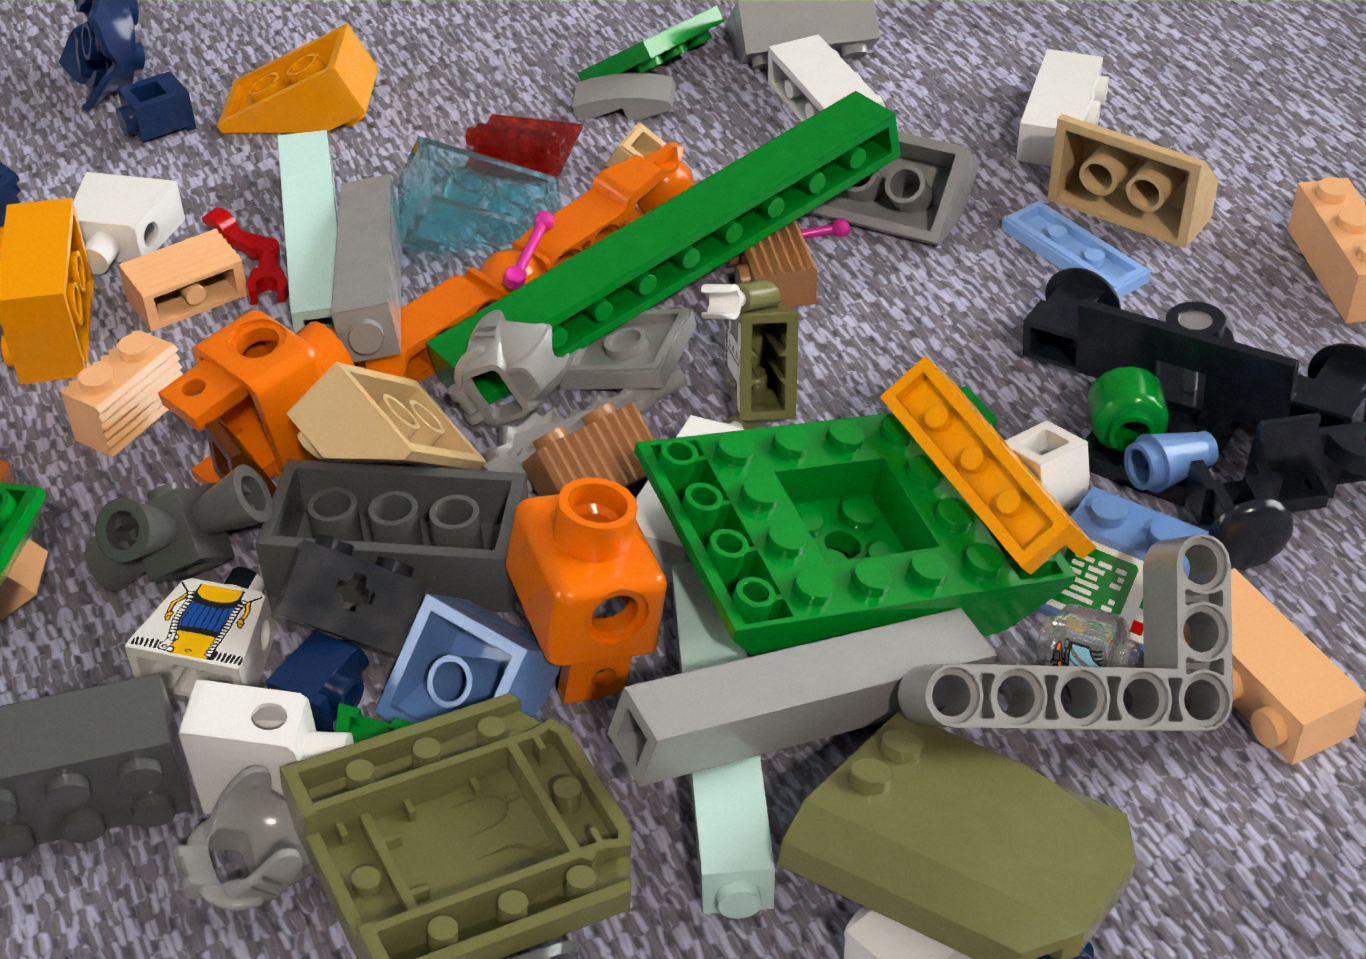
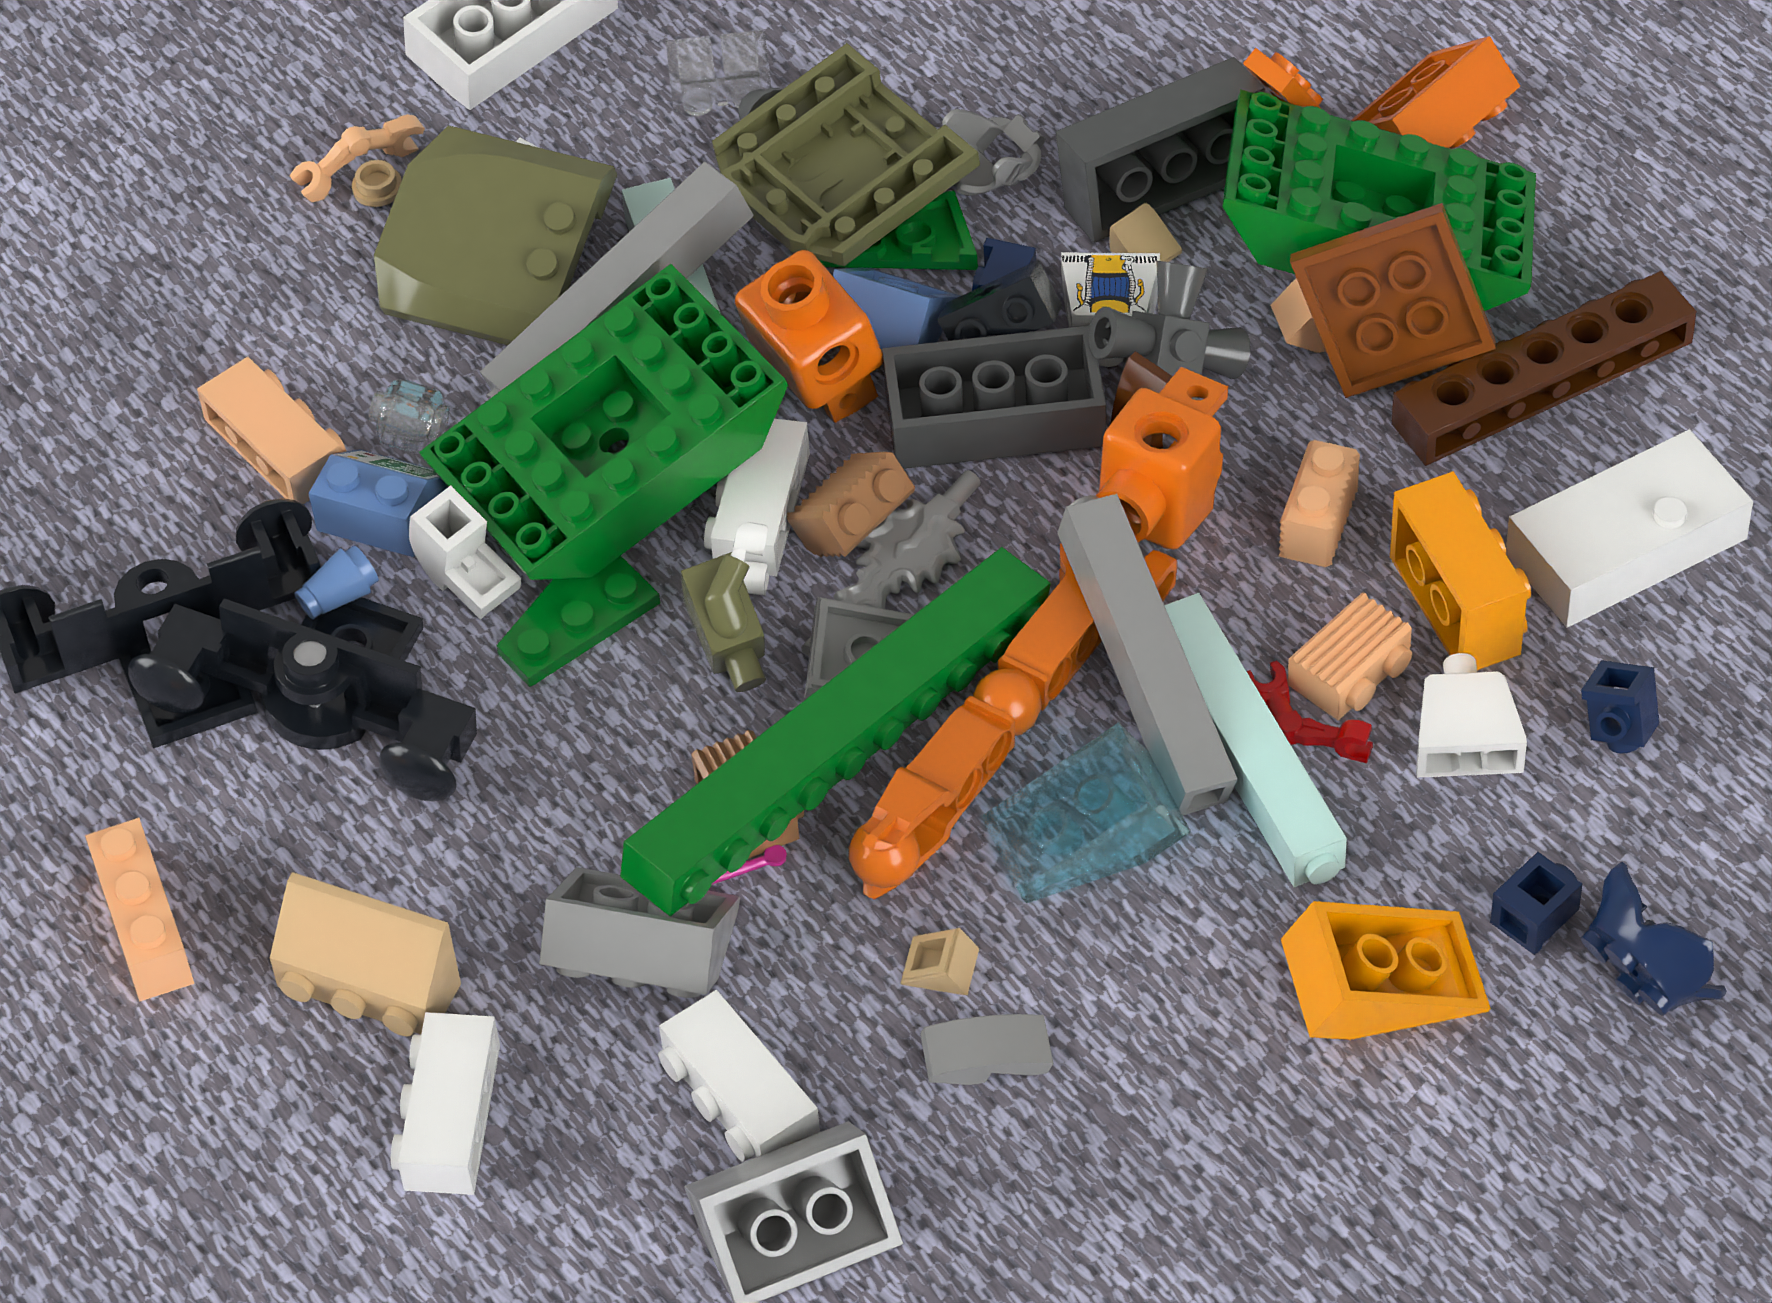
camera: 170 degrees right, 10 degrees up
(245, 727) = (1015, 198): white torso -> none
(379, 420) = (1024, 438): tan slope -> none
(516, 275) = (988, 657): dark pink hinge -> none
(522, 359) = (934, 574): light grey helmet -> none
(525, 142) = (1079, 946): clear red hinge -> none
(658, 47) = (969, 1126): green wing -> none
(983, 467) = (492, 454): light orange fence -> none
(1073, 246) = (416, 884): light blue tile -> none
(1098, 692) = (343, 378): light grey beam -> none
(1126, 405) = (375, 619): green head -> none

